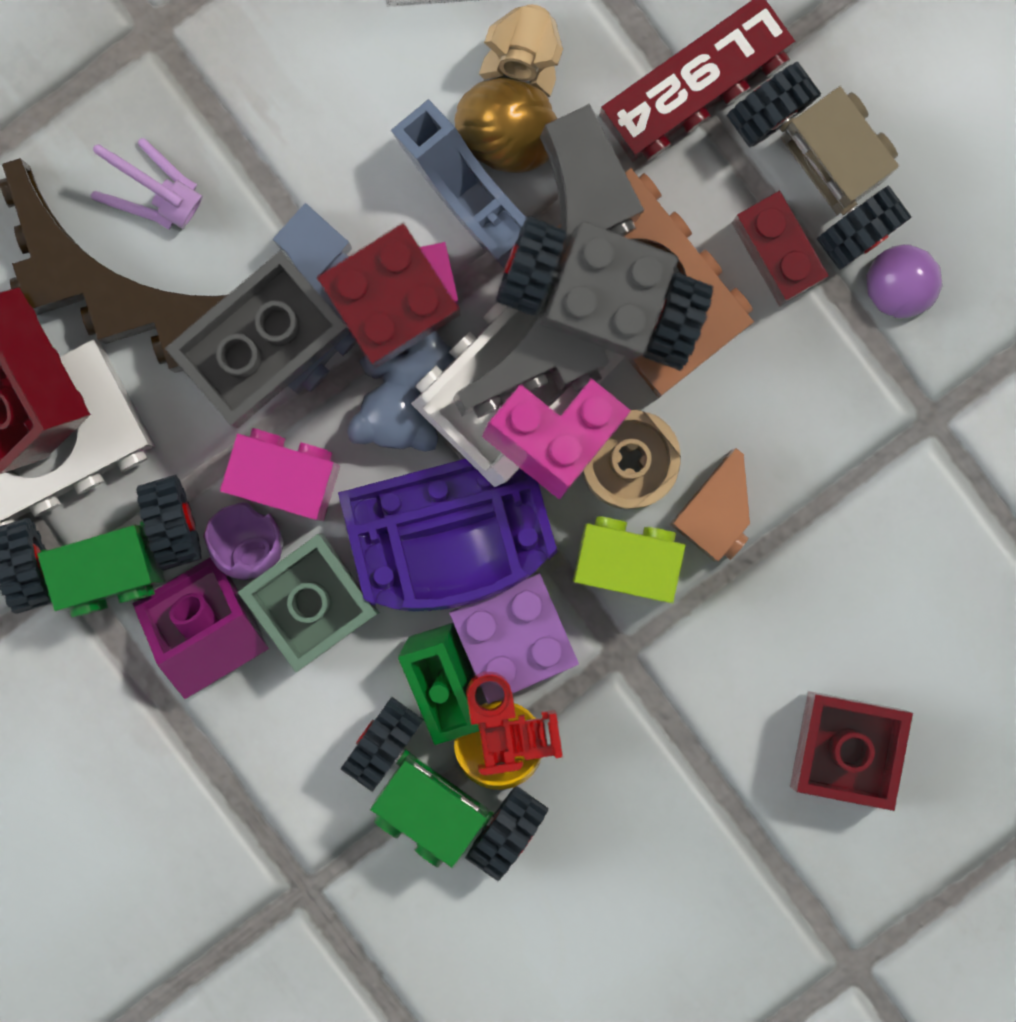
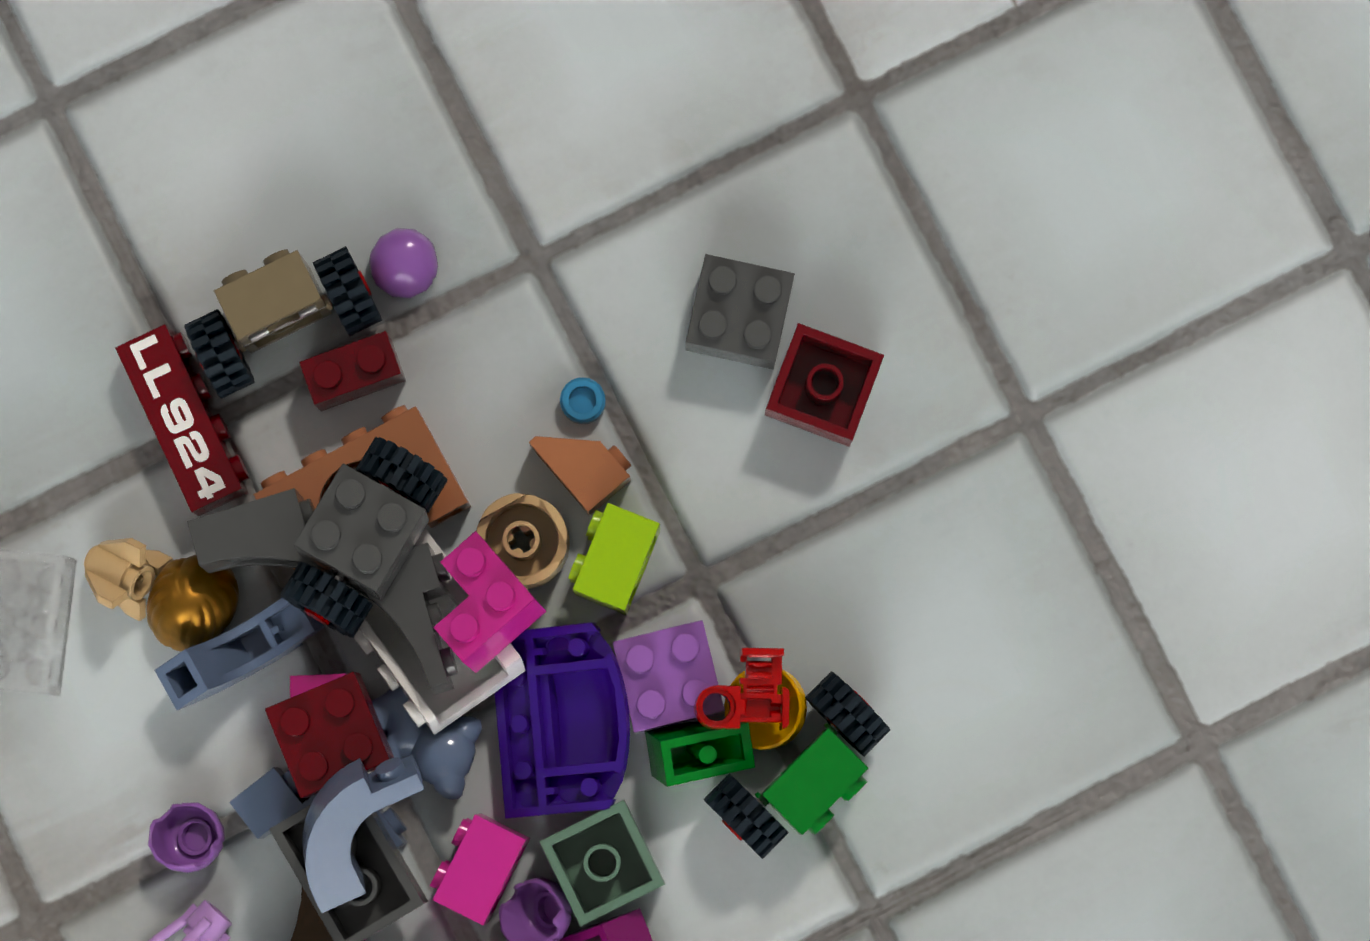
camera: 75 degrees left, 5 degrees down
(262, 165) = (186, 837): none -> medium lavender hair
(302, 318) = (337, 814): none -> sand blue arch
(790, 496) = (582, 400): none -> dark azure tile
(914, 647) = (739, 311): none -> dark grey piece

